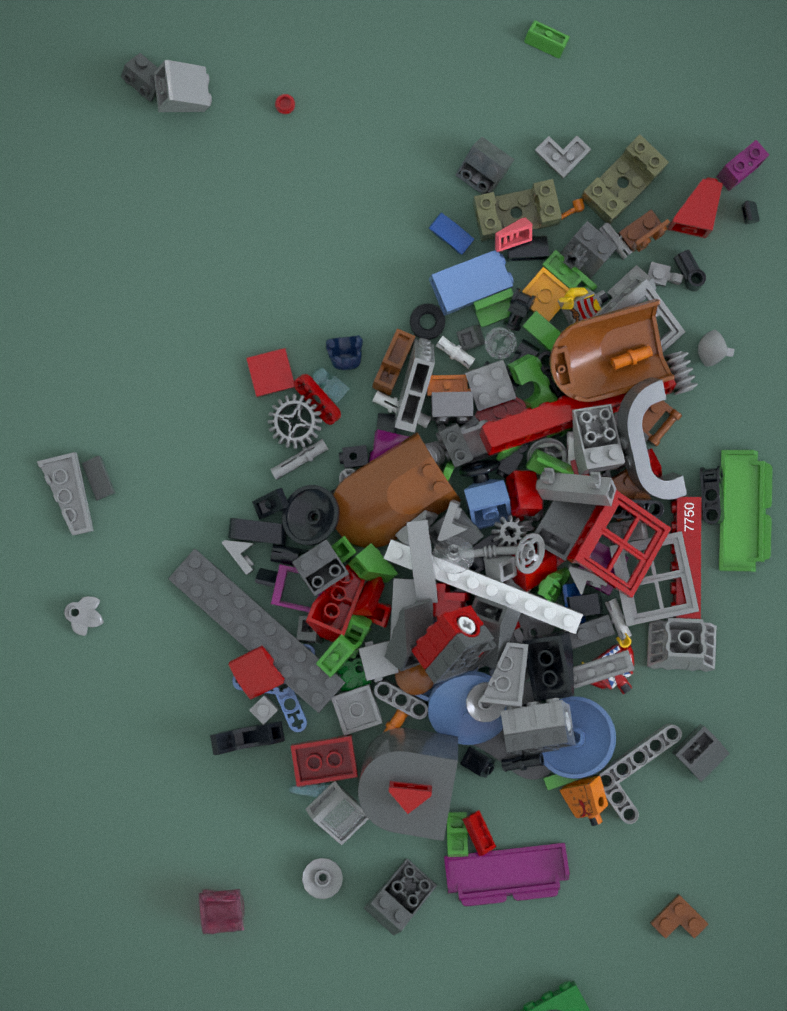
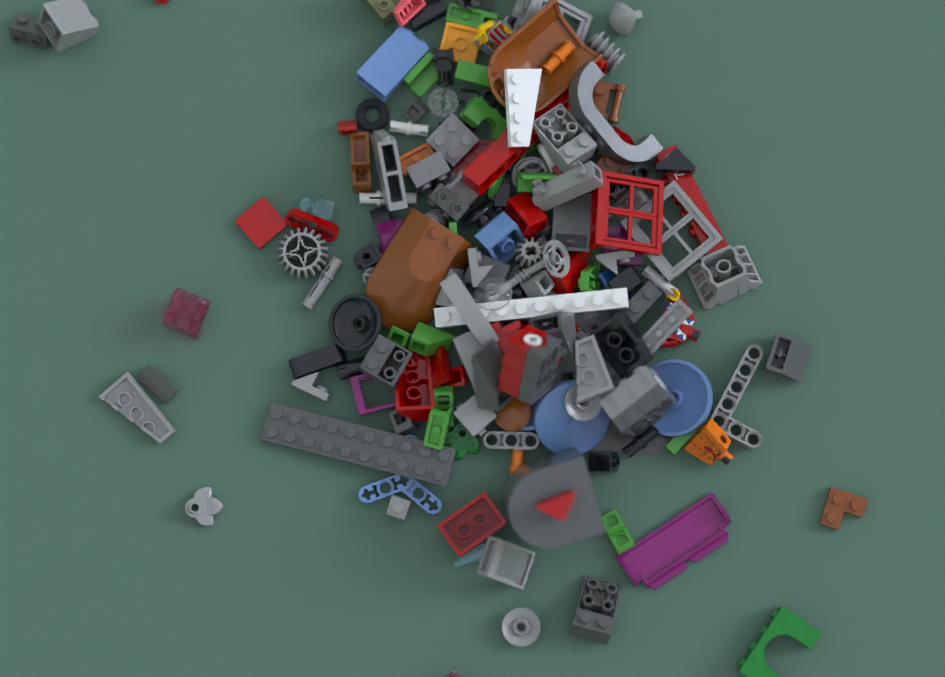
camera: 25 degrees left, 5 degrees down
(156, 424) = (186, 313): none -> clear pink piece
(247, 737) = (396, 538): black arch -> none
(256, 672) = (376, 478): red slope -> none
(266, 577) = (344, 396): black slope -> none
(270, 503) = (316, 331): black slope -> none
(345, 352) = (316, 173): dark blue hair -> none
(357, 709) = (477, 468): light grey plate -> none
(398, 321) = (347, 127): none -> red slope
(451, 233) = (355, 32): blue slope -> none
(479, 833) = (635, 520): red plate -> none
(572, 386) = (520, 100): none -> white wing
(691, 516) = (675, 163): none -> black slope
(708, 484) = (678, 128): black piece -> none
(746, 496) = (715, 134): bright green slope -> none

